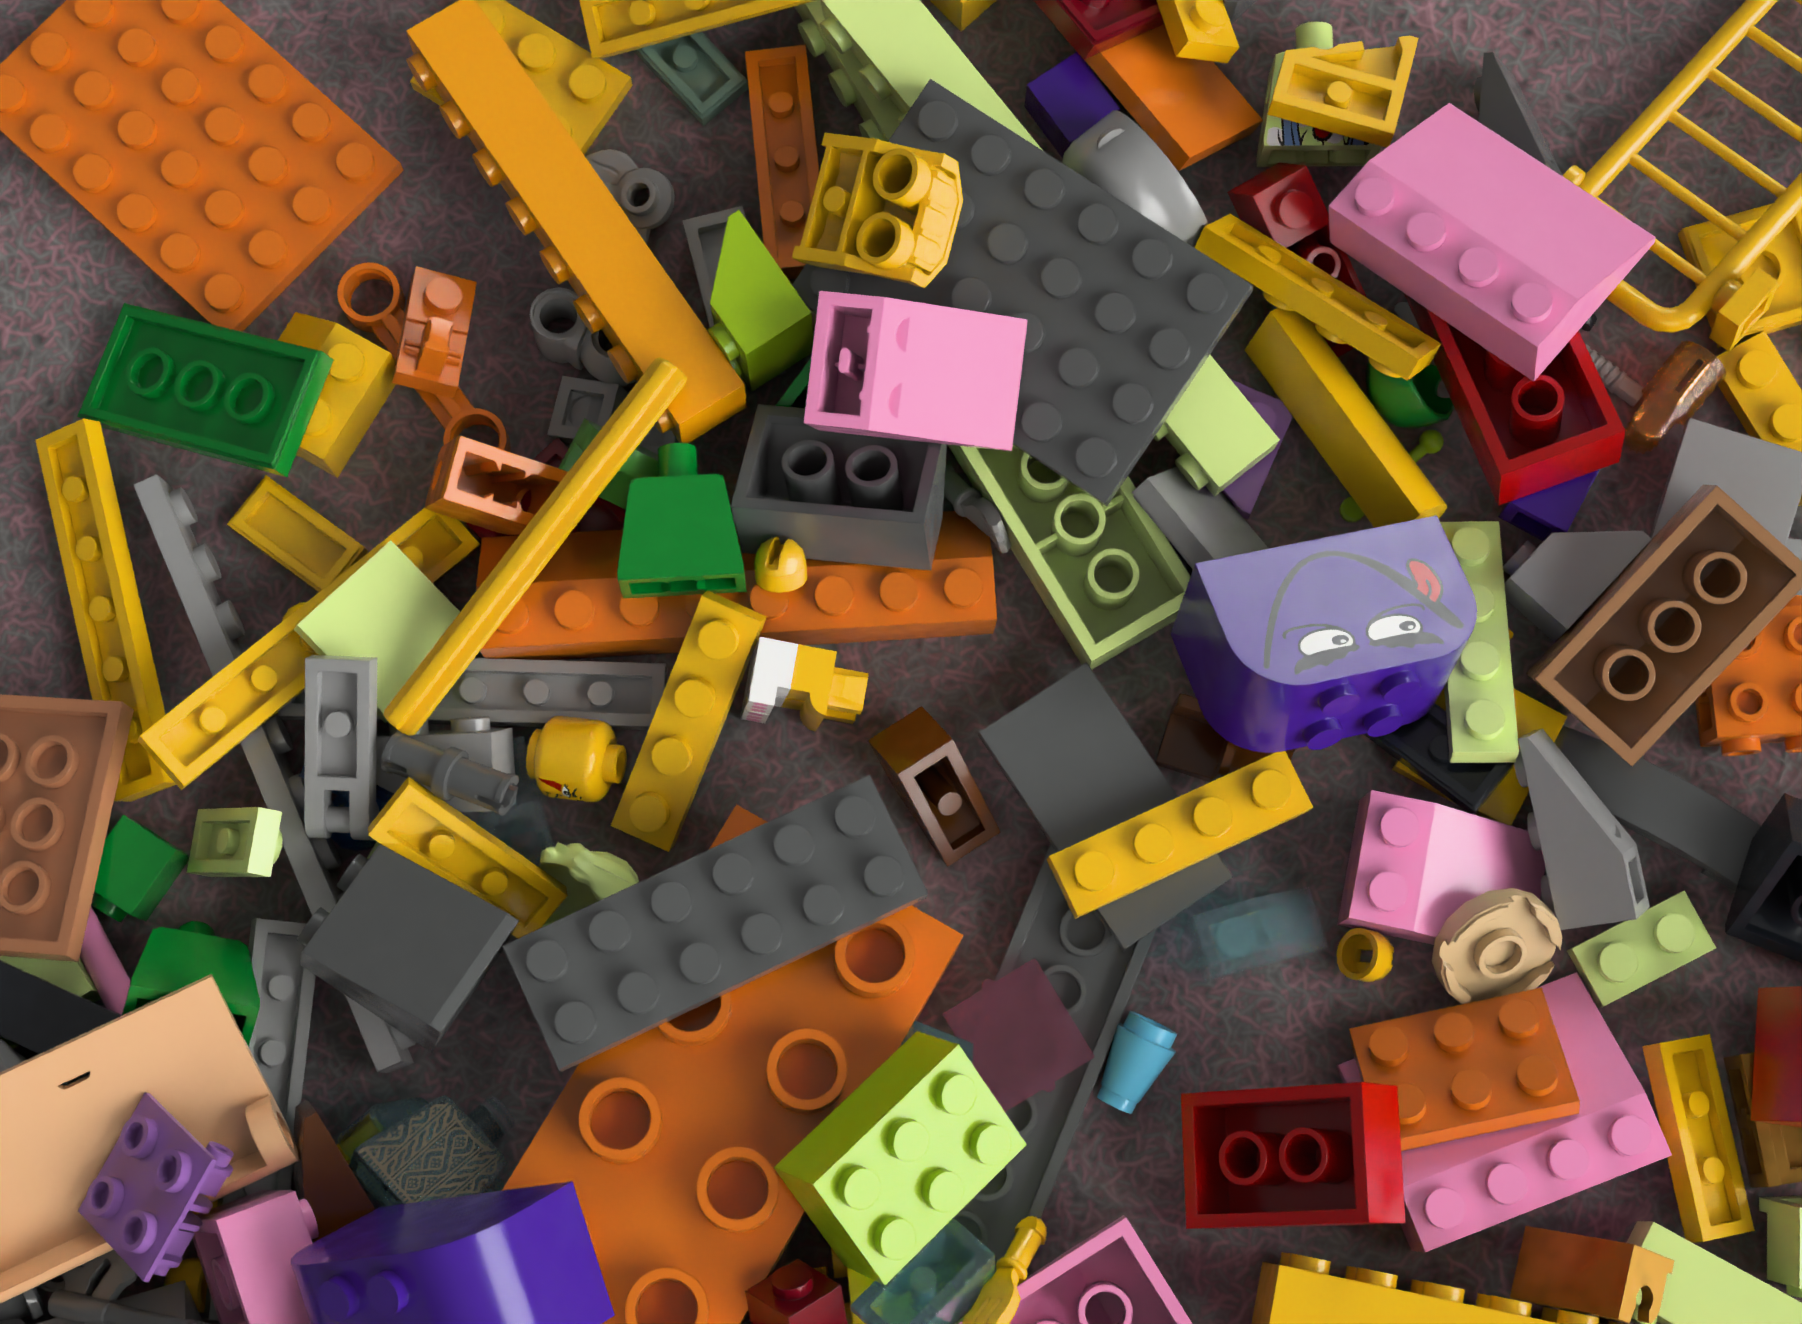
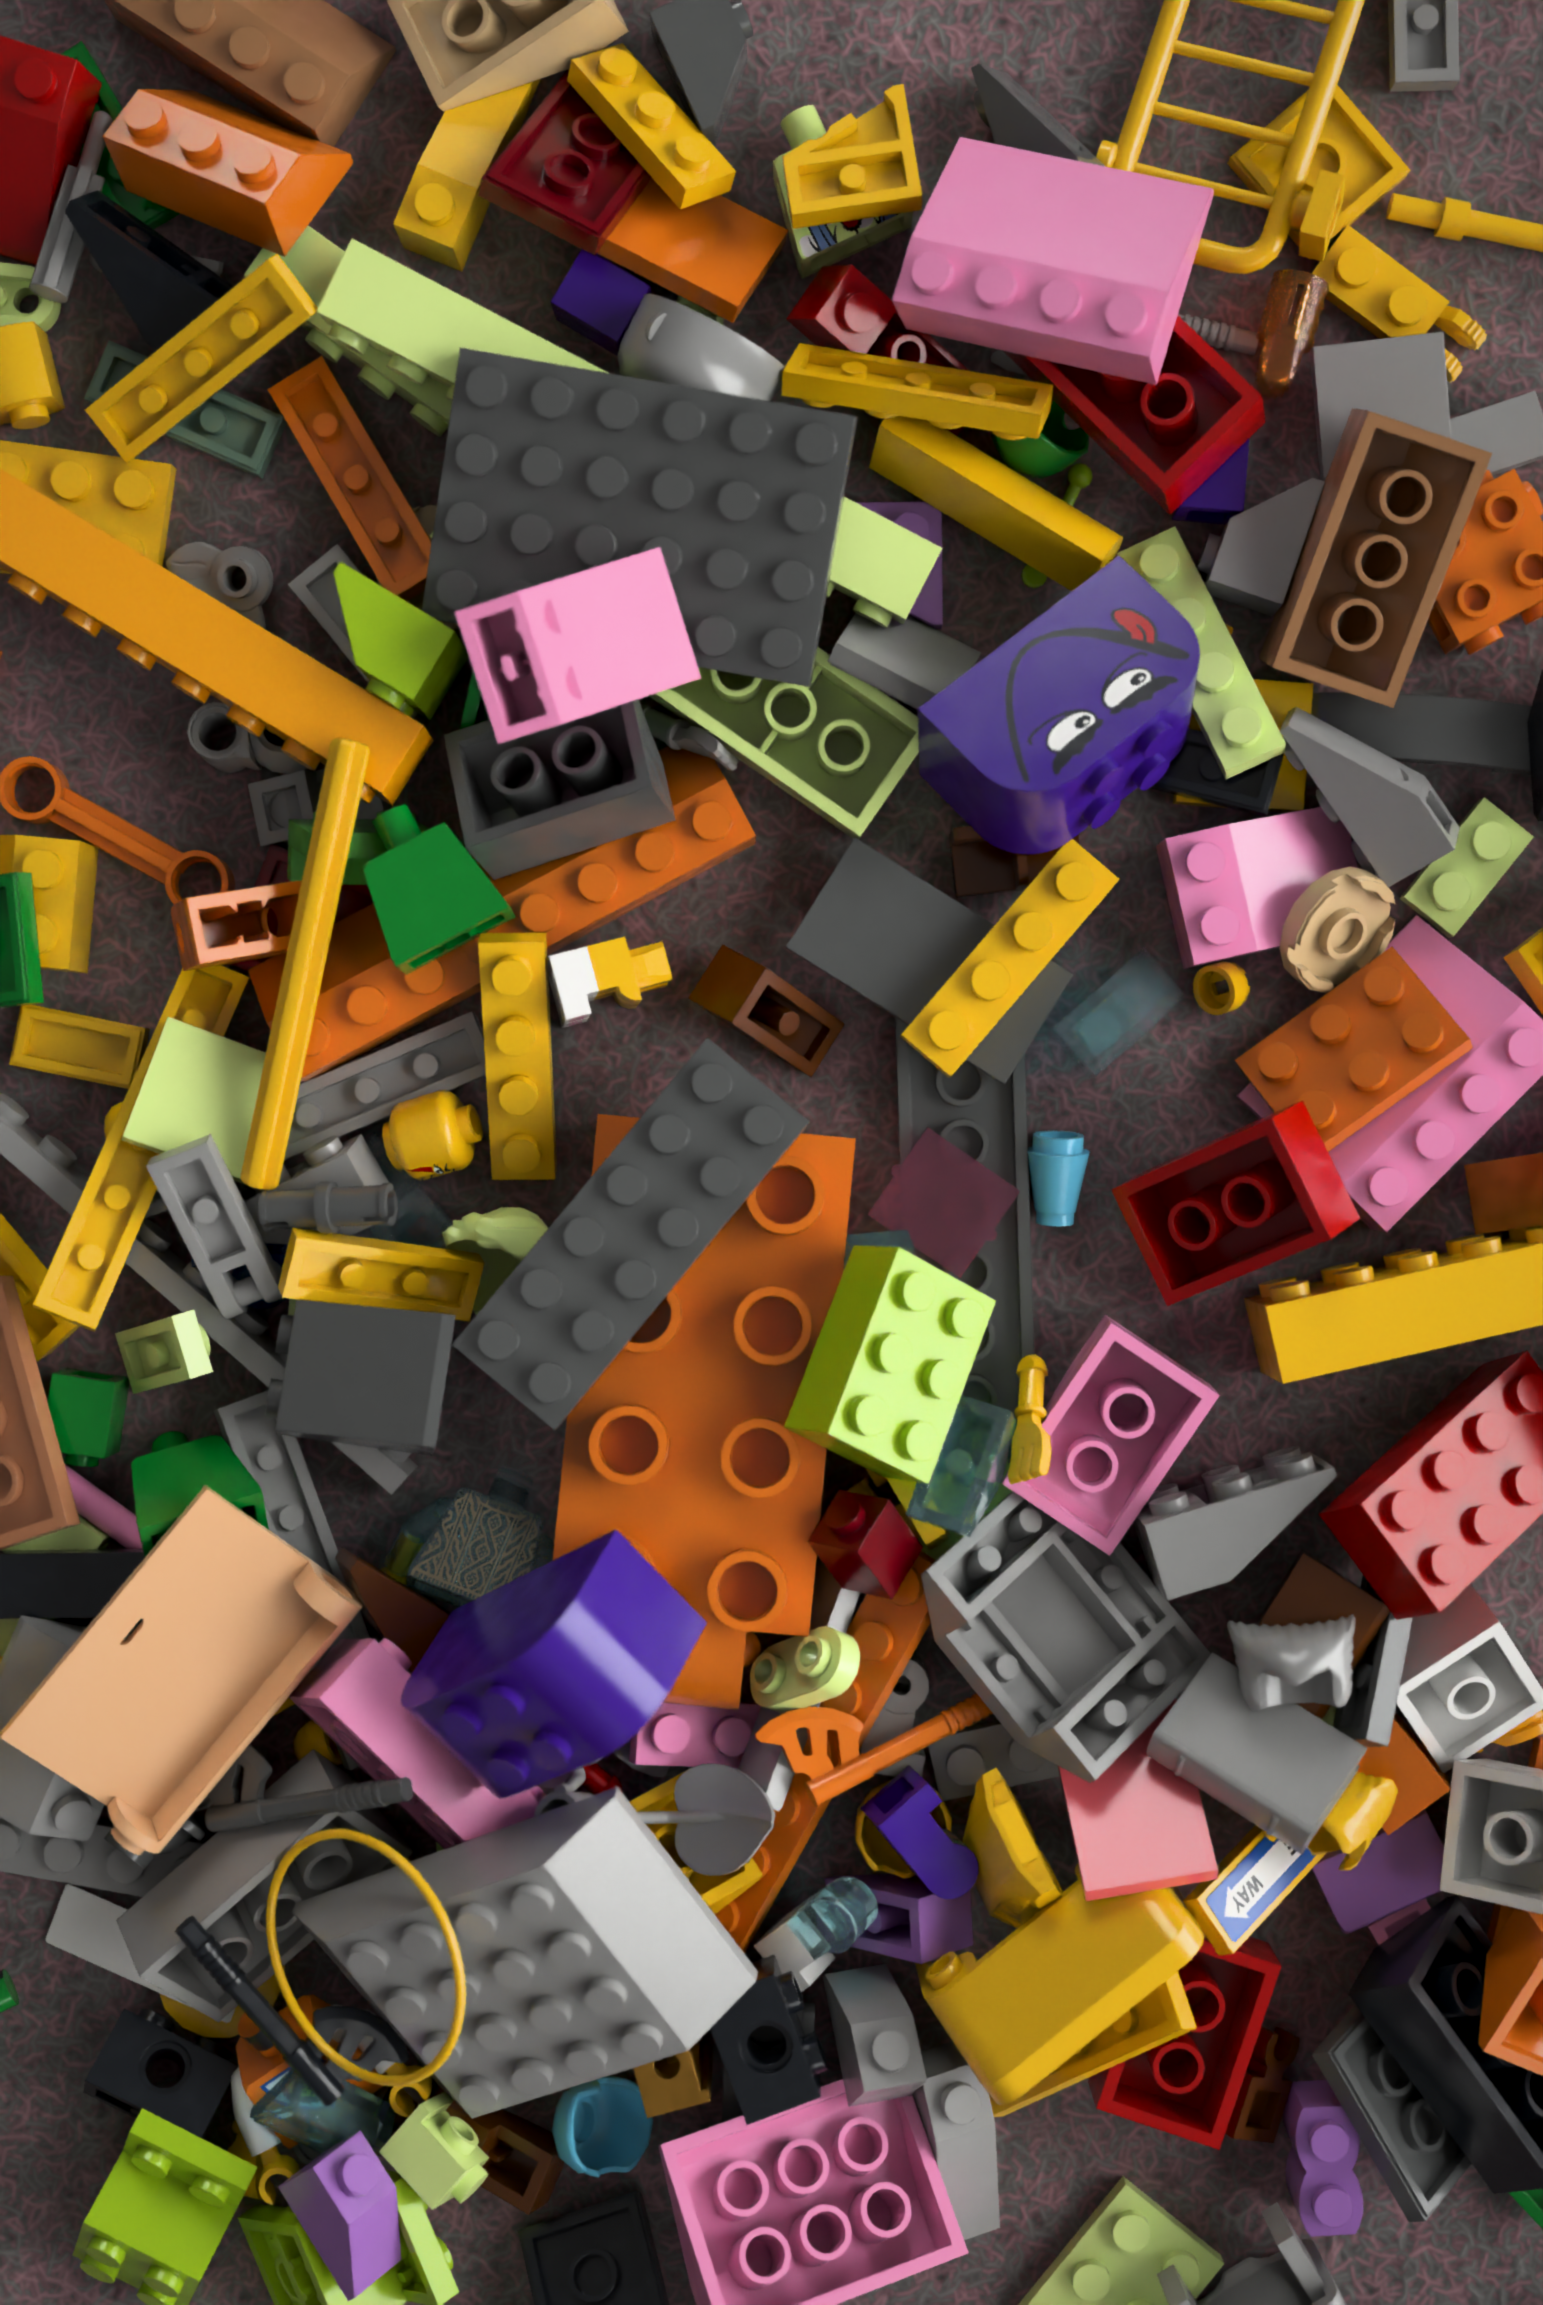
camera: 25 degrees left, 10 degrees up
(150, 1186) = (250, 1693): medium lavender hinge -> none
(434, 332) = (109, 798): orange hinge -> none
(780, 566) = (547, 875): yellow hinge -> none
(882, 210) = (475, 502): yellow slope -> none

